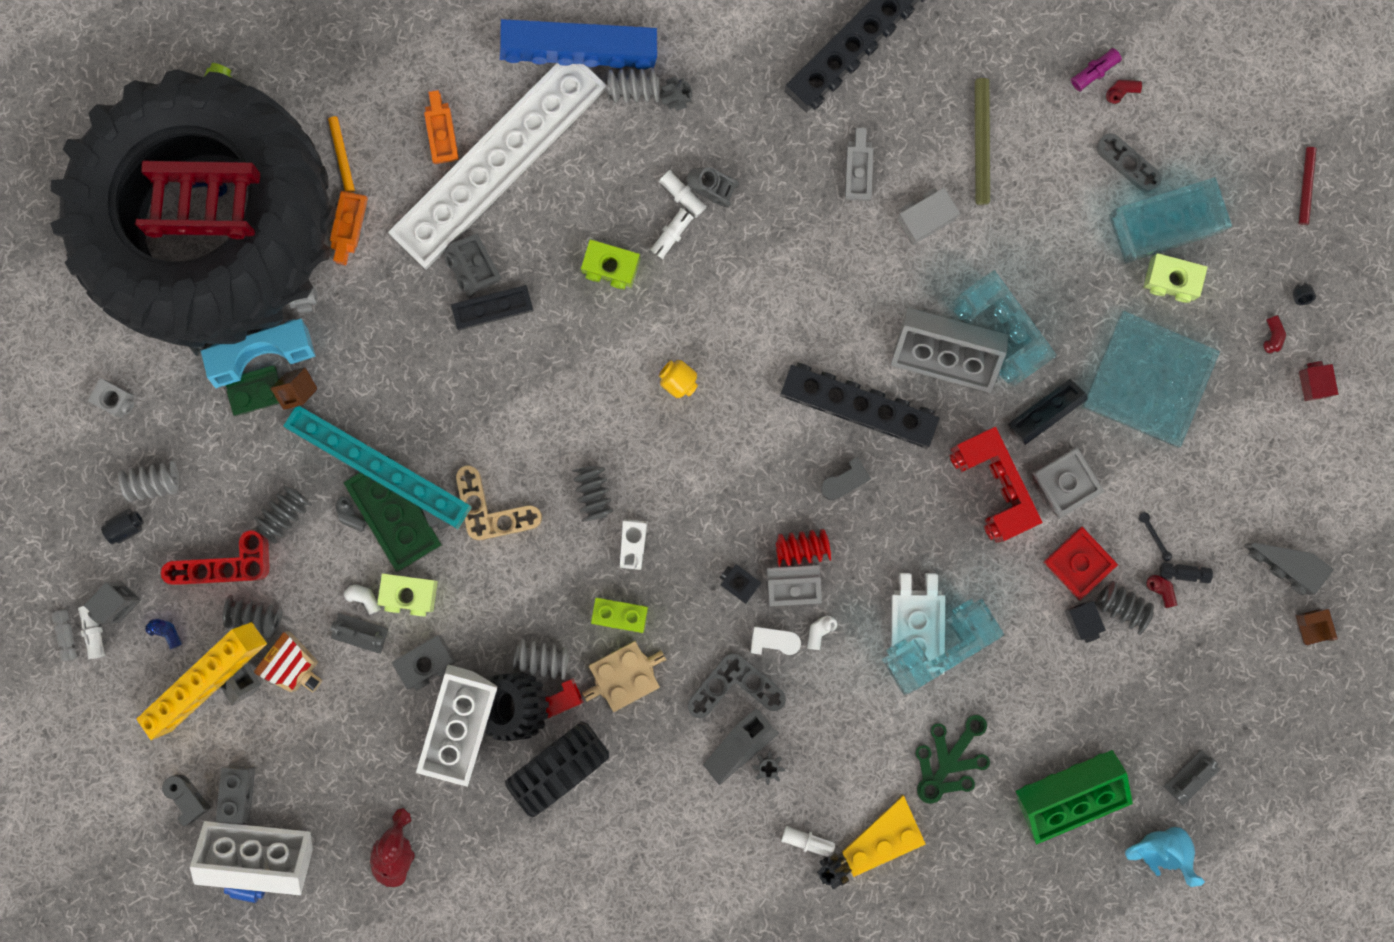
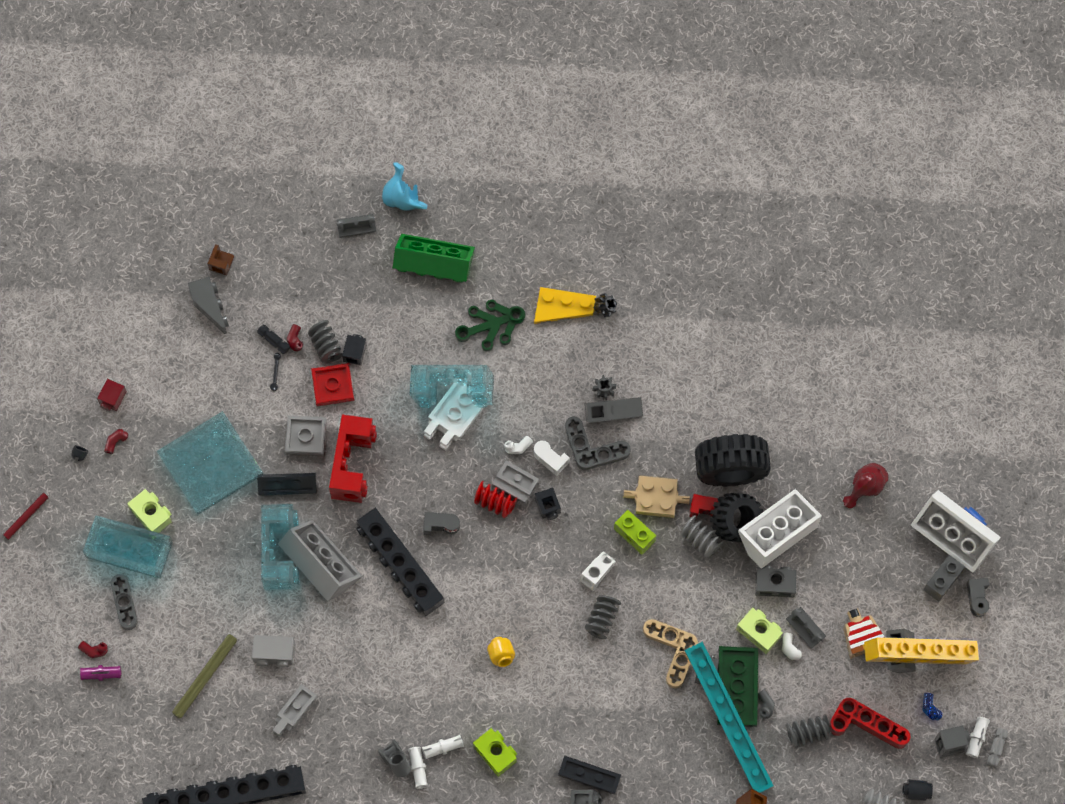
camera: 150 degrees left, 15 degrees down
(237, 615) = (868, 679): dark grey piece -> none
(808, 842) = (609, 332): white axle -> none

